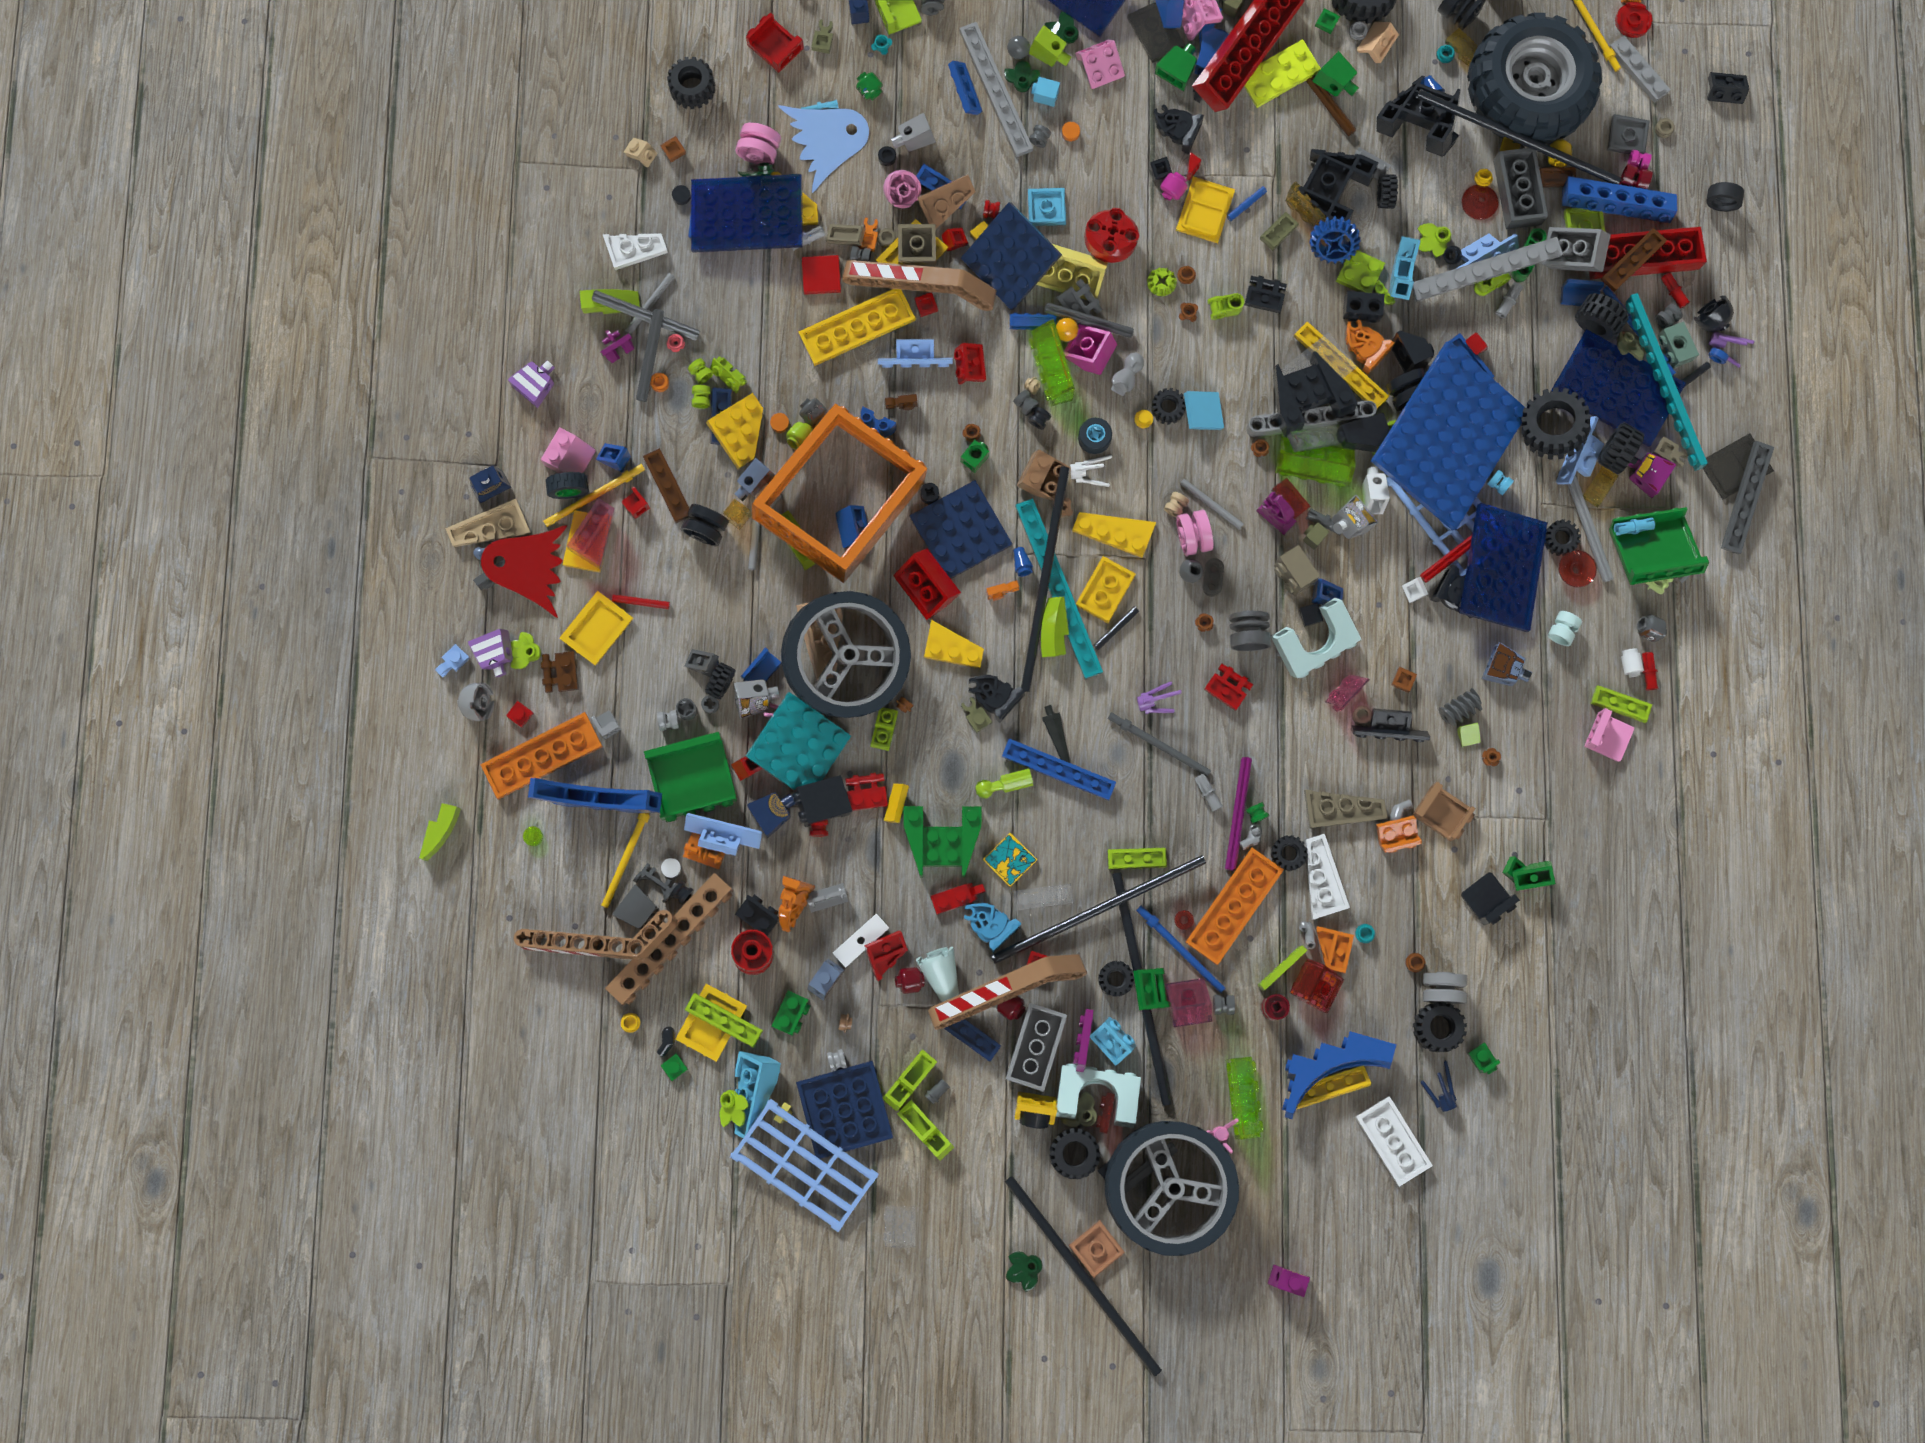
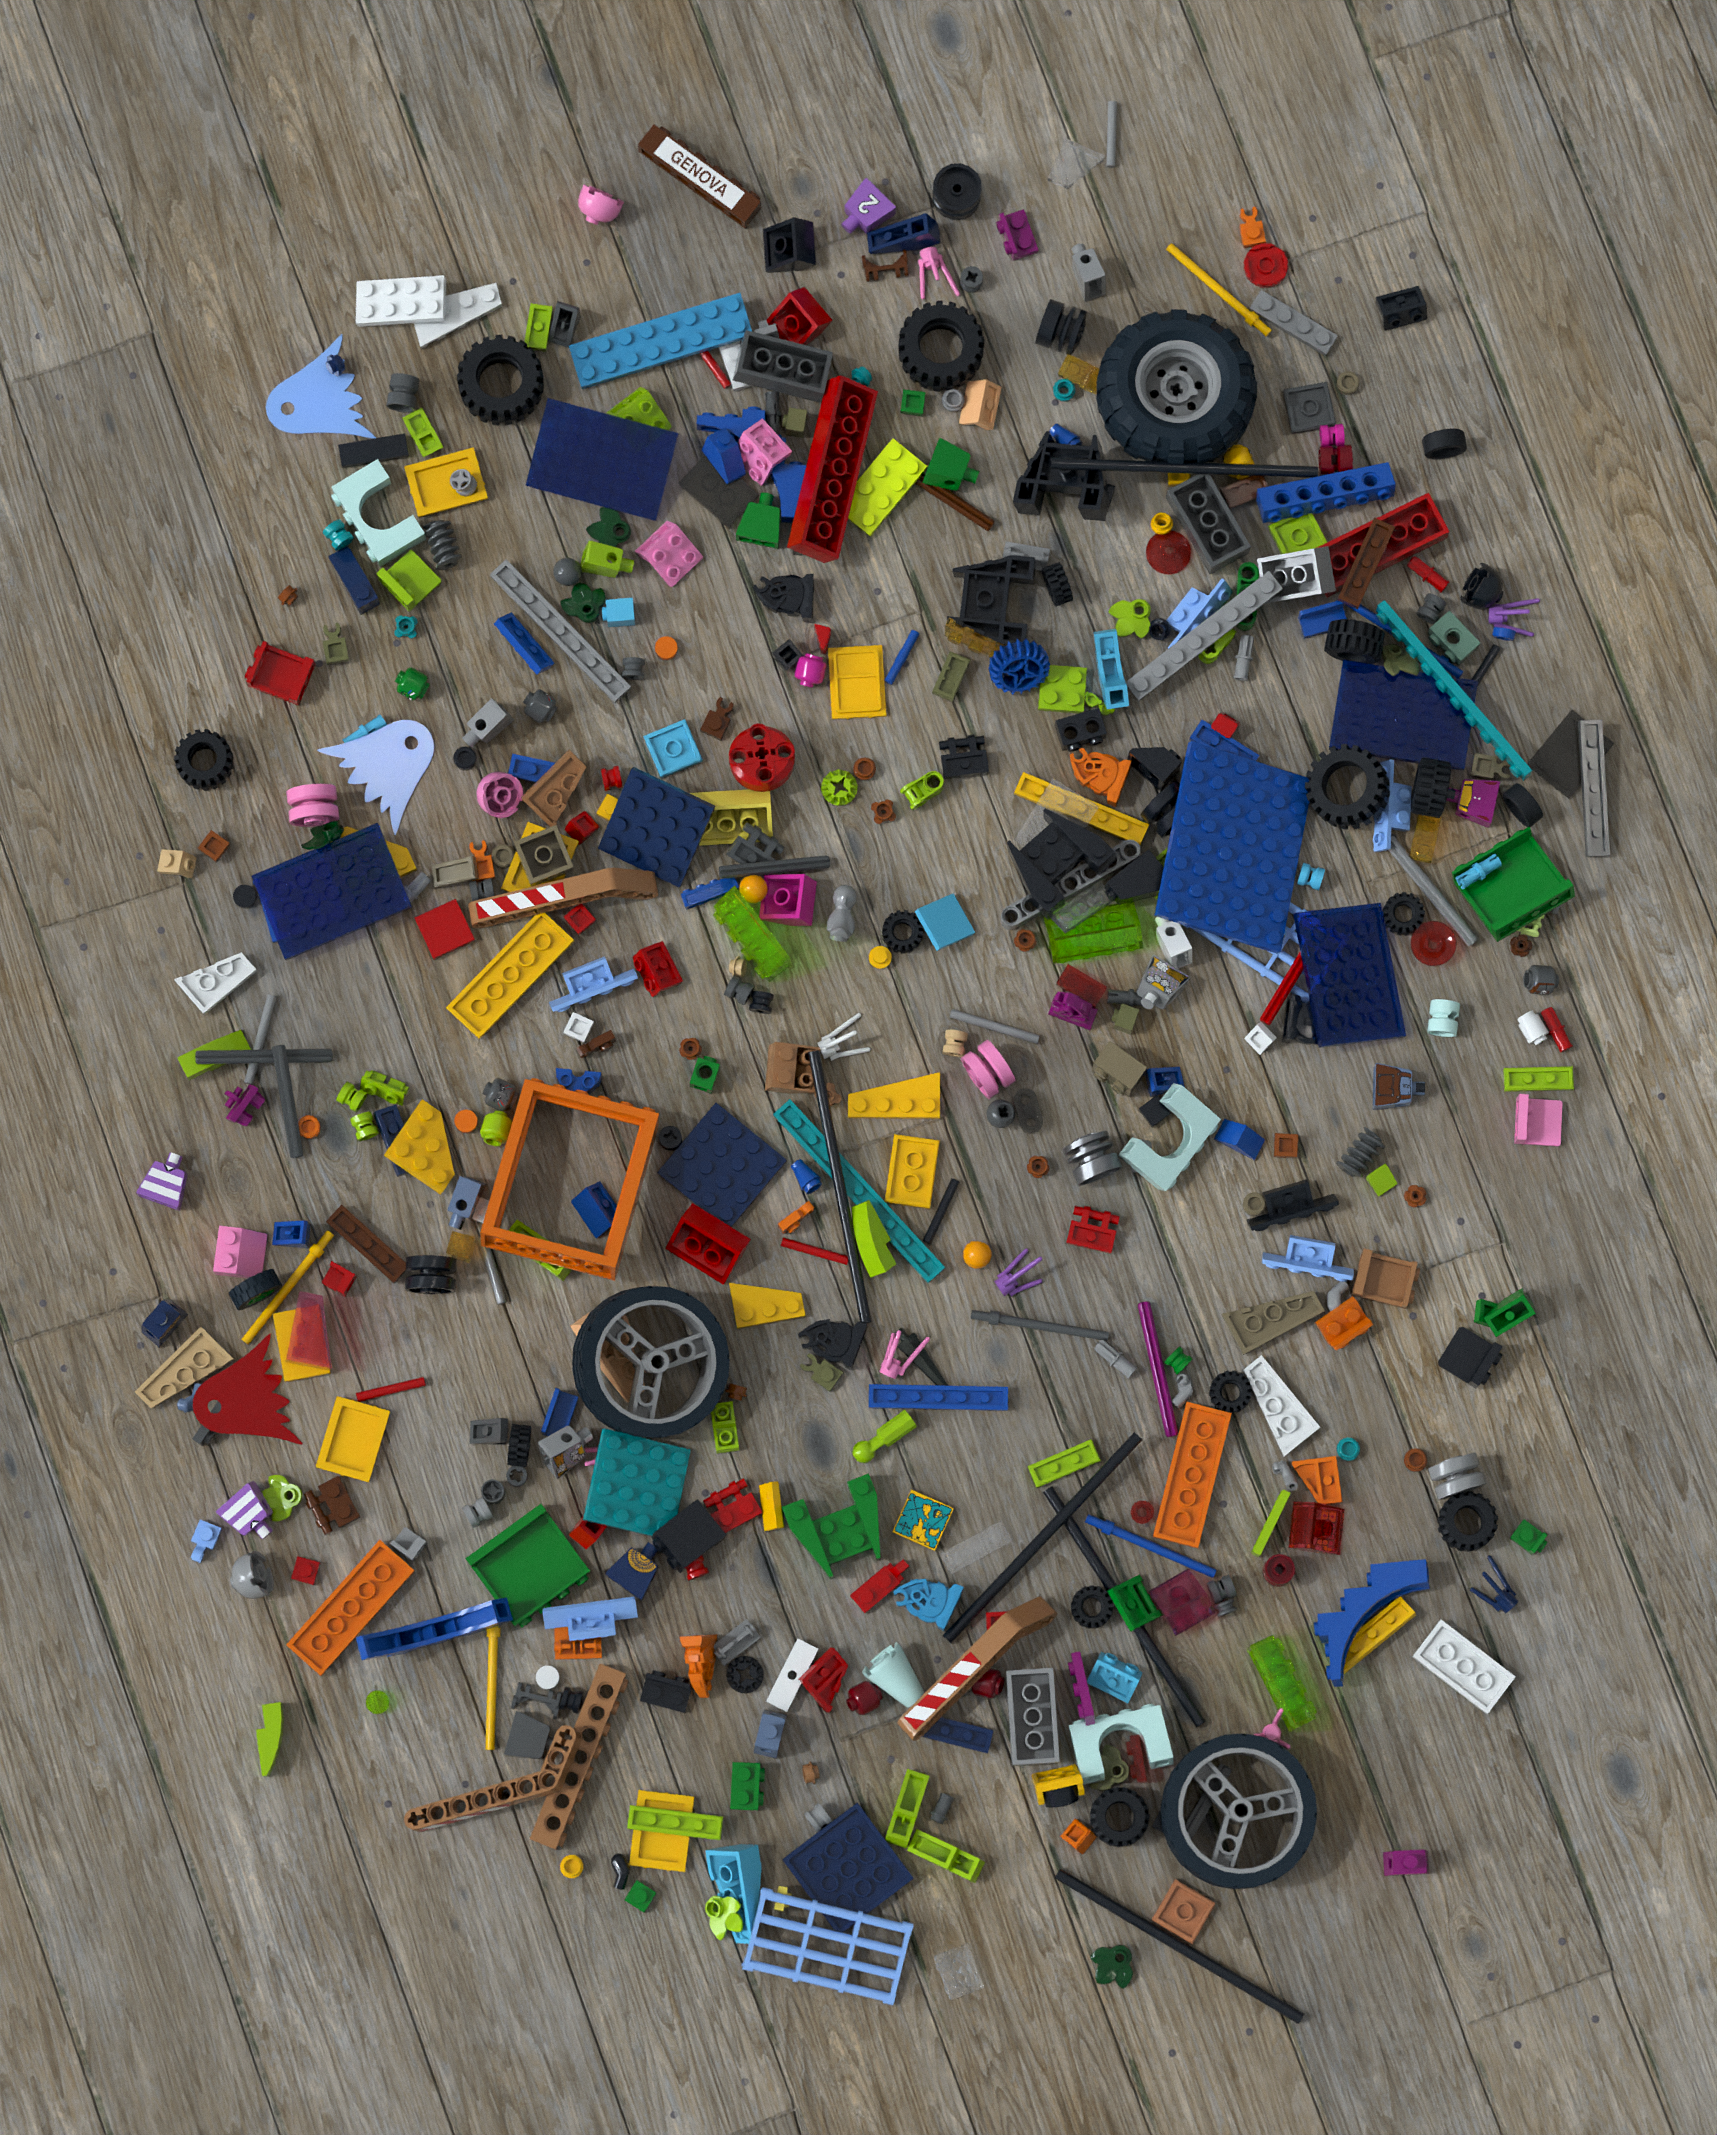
camera: 20 degrees left, 0 degrees up
(675, 338) = (305, 1069): coral plate -> none
(744, 943) = (677, 1721): red wheel -> none
(815, 925) = (747, 1685): none -> black gear
(893, 384) = (578, 1027): none -> white plate
(958, 137) = (540, 706): none -> dark grey head
(1005, 620) = (815, 1251): none -> red bar
(1031, 730) = (890, 1365): none -> bright pink plant
(1036, 1155) = (1078, 1836): none -> orange slope
(1088, 199) = (717, 722): none -> reddish brown plate
(1097, 429) = (832, 998): black wheel -> none
(1131, 671) = (977, 1254): none -> light orange piece
(1221, 1020) = (1225, 1607): none -> dark grey bush
(1346, 691) = (1226, 1184): clear pink hinge -> none
(1370, 660) = (1239, 1138): none -> blue slope
(1391, 771) = (1309, 1256): none -> light blue bracket
(1640, 596) = (1516, 950): none -> reddish brown plate
(1687, 489) = (1522, 805): none -> black tyre

